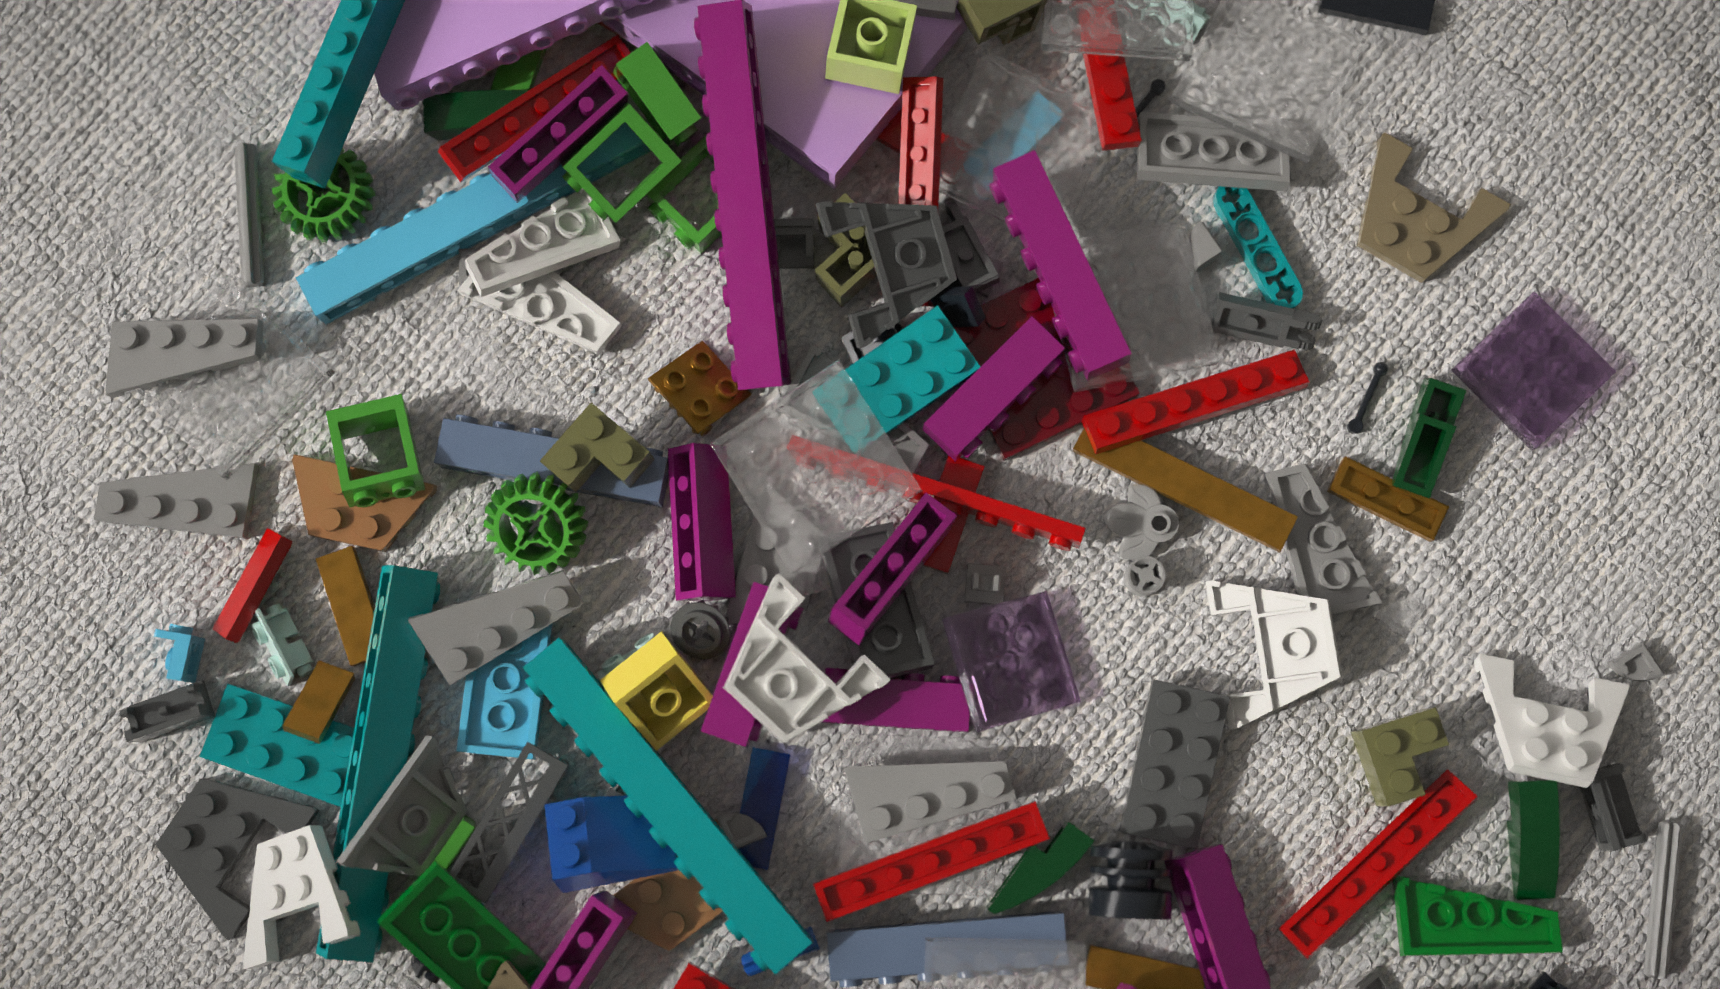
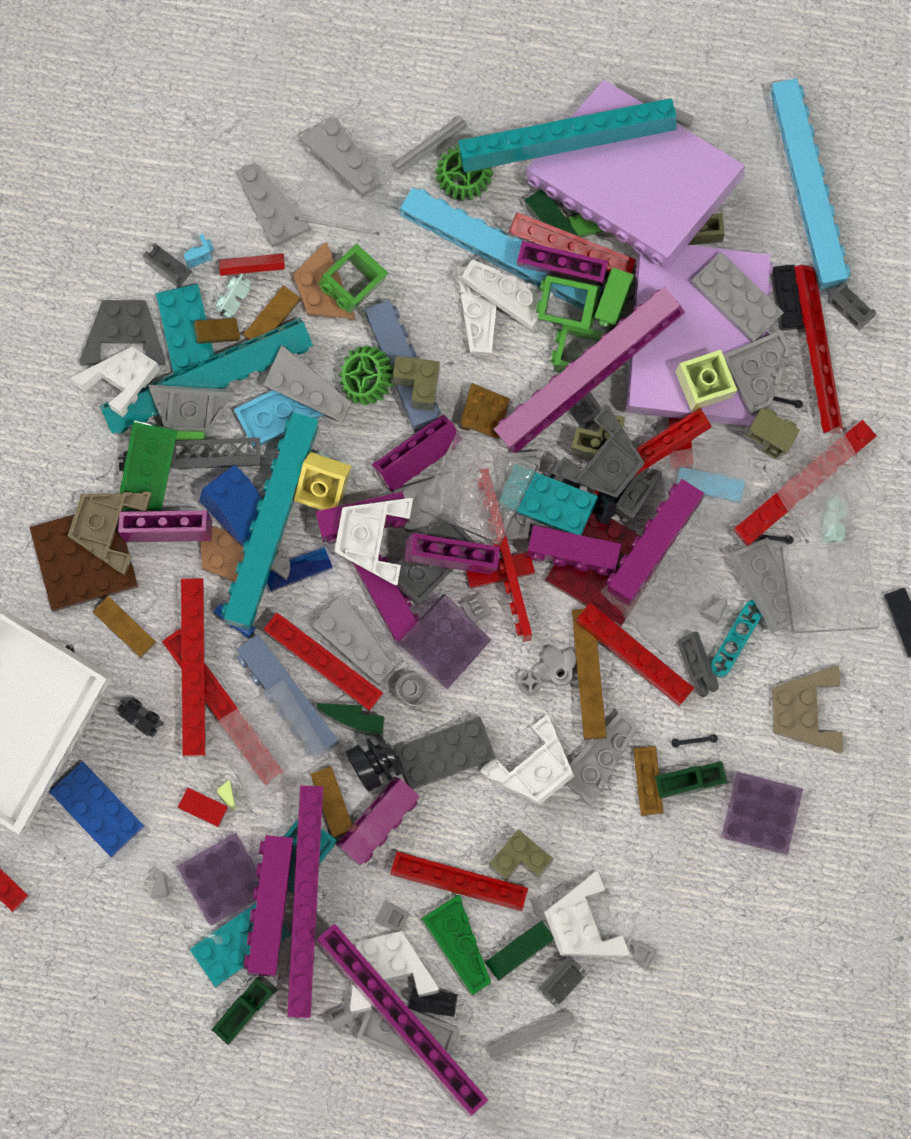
camera: 55 degrees right, 5 degrees down
(684, 629) = (361, 478): dark grey gear -> none
(1053, 753) = (412, 690): none -> light grey hair

